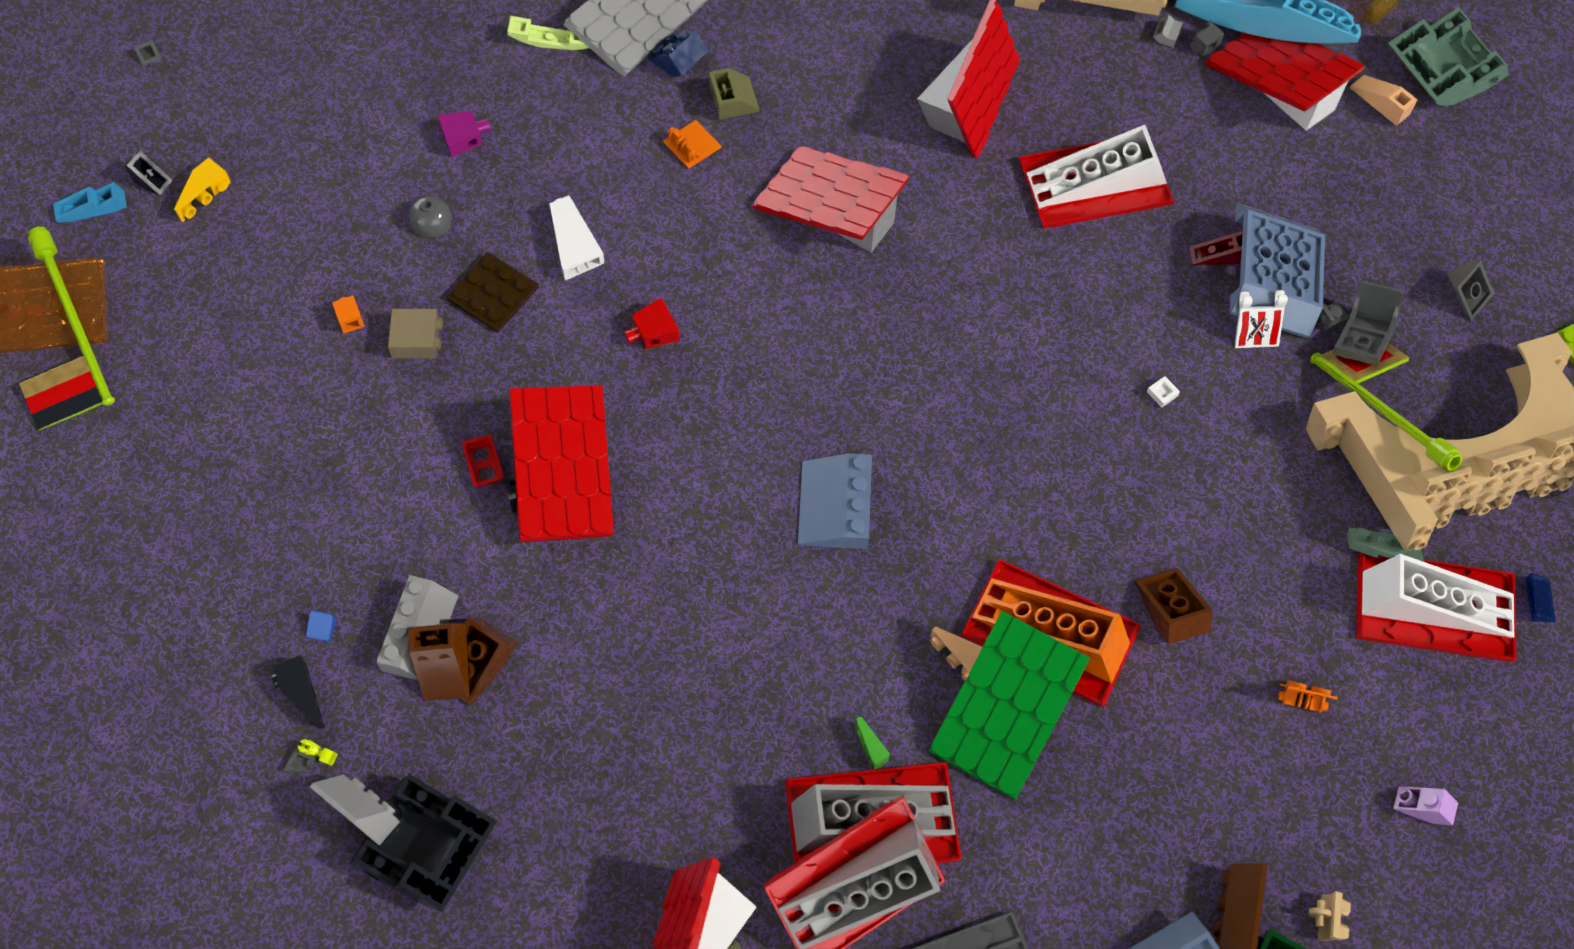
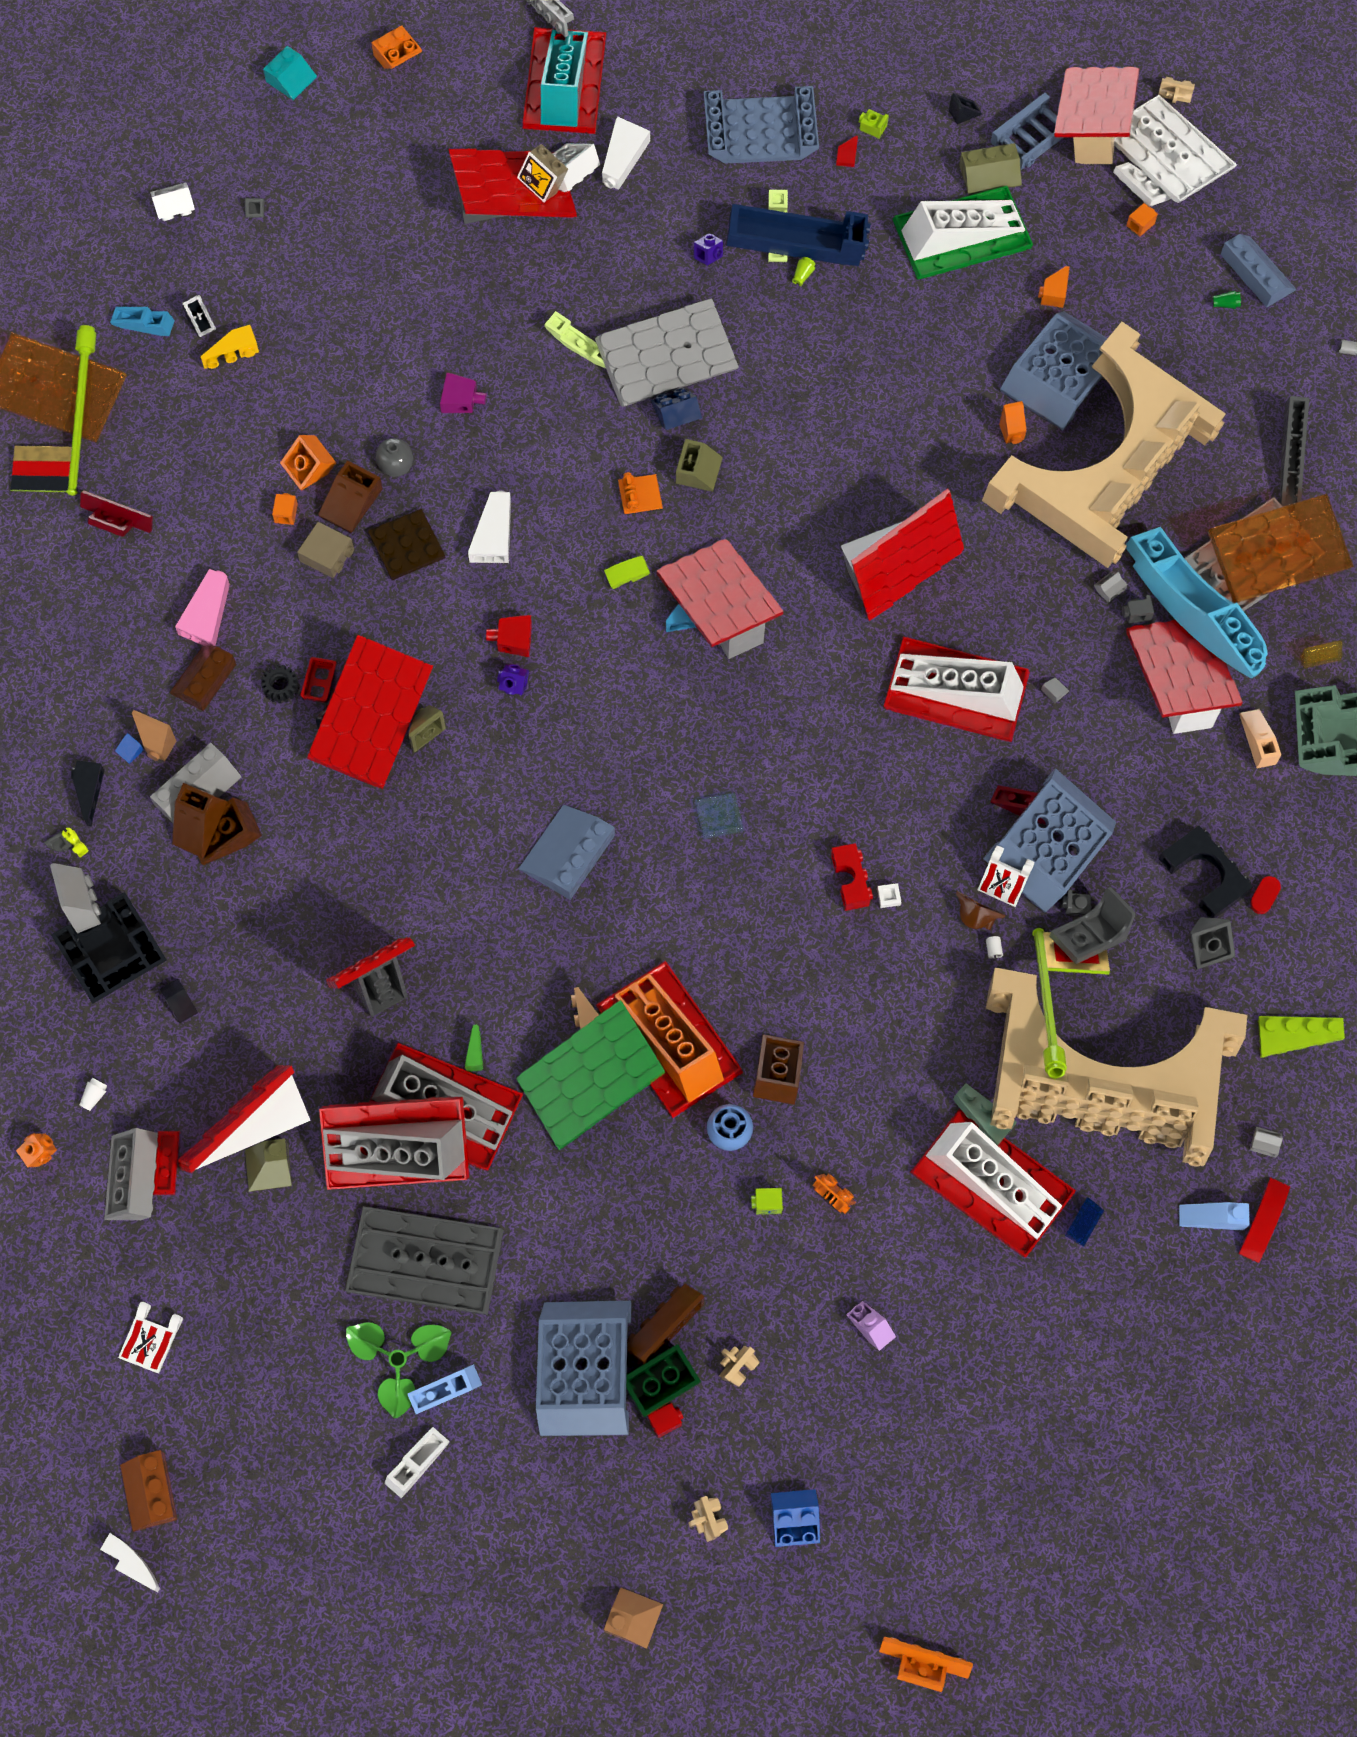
camera: 30 degrees right, 5 degrees up
(58, 80) = (173, 201): none -> white slope
(168, 402) = (114, 516): none -> dark red bracket
(322, 451) = (205, 611): none -> bright pink slope
(343, 598) = (155, 736): none -> medium nougat slope
(344, 259) = (307, 461): none -> orange slope
(359, 515) = (204, 676): none -> reddish brown slope
(409, 271) = (350, 496): none -> reddish brown slope
(444, 472) = (280, 673): none -> black tyre
(529, 858) = (178, 1001): none -> black slope
(622, 450) = (425, 726): none -> olive slope
(680, 366) = (513, 679): none -> dark purple brick
(725, 217) = (627, 571): none -> lime slope
(732, 715) = (376, 977): none -> dark grey piece
(806, 236) = (678, 620): none -> dark azure slope
(958, 398) = (719, 816): none -> clear light blue tile
(1107, 377) = (849, 859): none -> red arch
(1161, 696) = (733, 1113): none -> medium blue wheel
(1181, 141) = (1054, 690): none -> light grey slope
(1250, 738) = (767, 1201): none -> lime brick
(1253, 369) = (975, 914): none -> reddish brown hat
(1287, 390) = (994, 947): none -> white hinge
(1449, 230) = (1199, 845): none -> black arch
(1481, 228) = (1265, 895): none -> red tile

